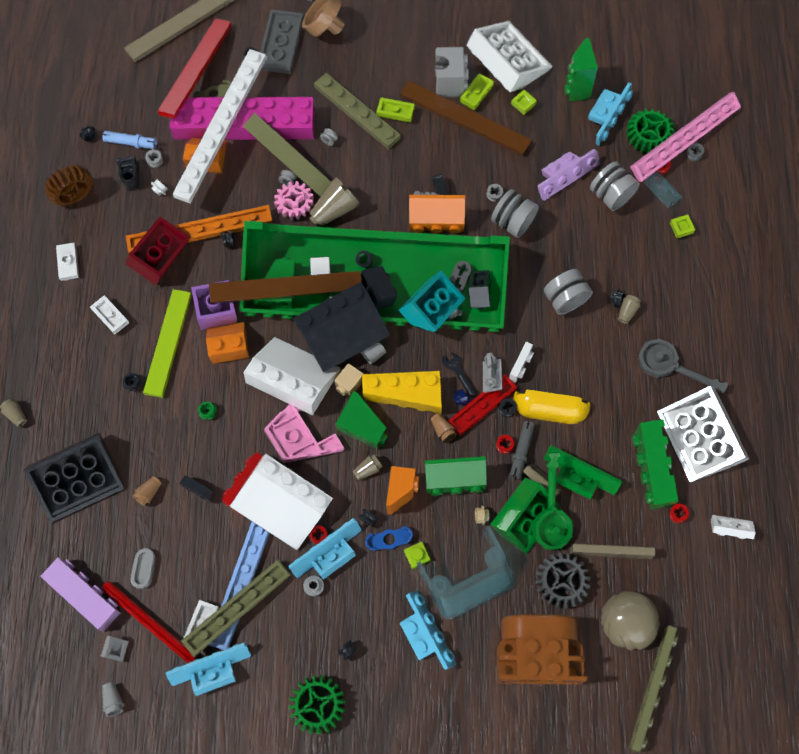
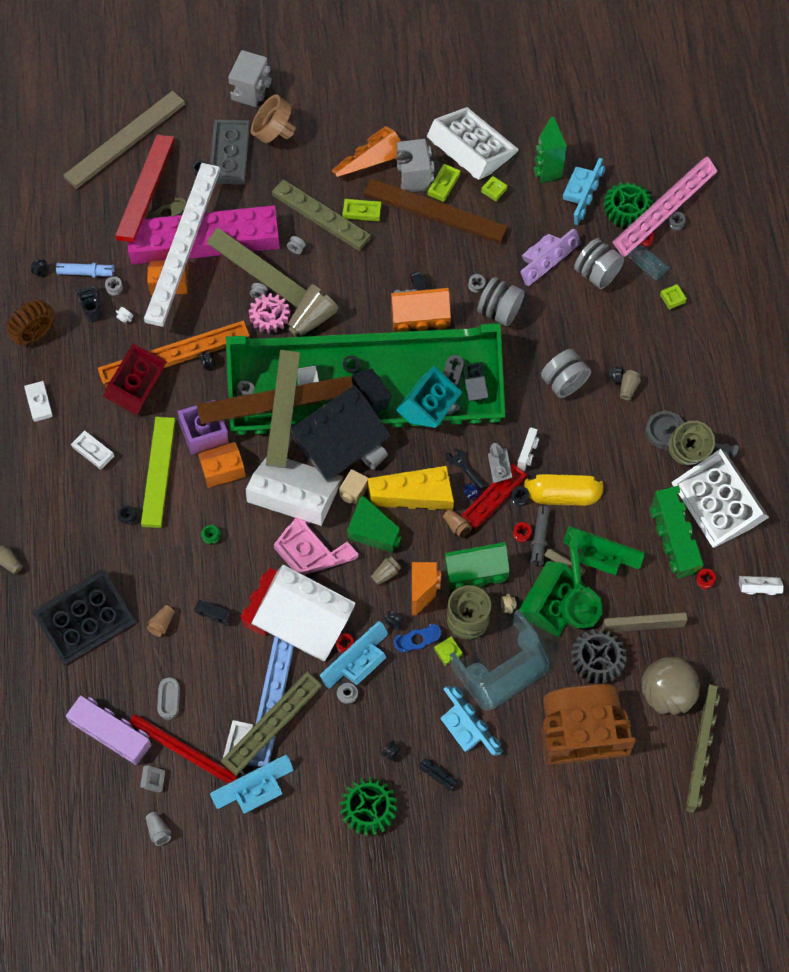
camera: 10 degrees left, 5 degrees down
(260, 268) = (246, 385): none -> light grey bush
(290, 296) = (282, 409): none -> olive tile
(389, 680) = (438, 774): none -> black axle
(419, 54) = (381, 148): none -> orange wedge
(448, 512) = (471, 602): none -> olive wheel
(691, 381) = (699, 435): none -> olive wheel

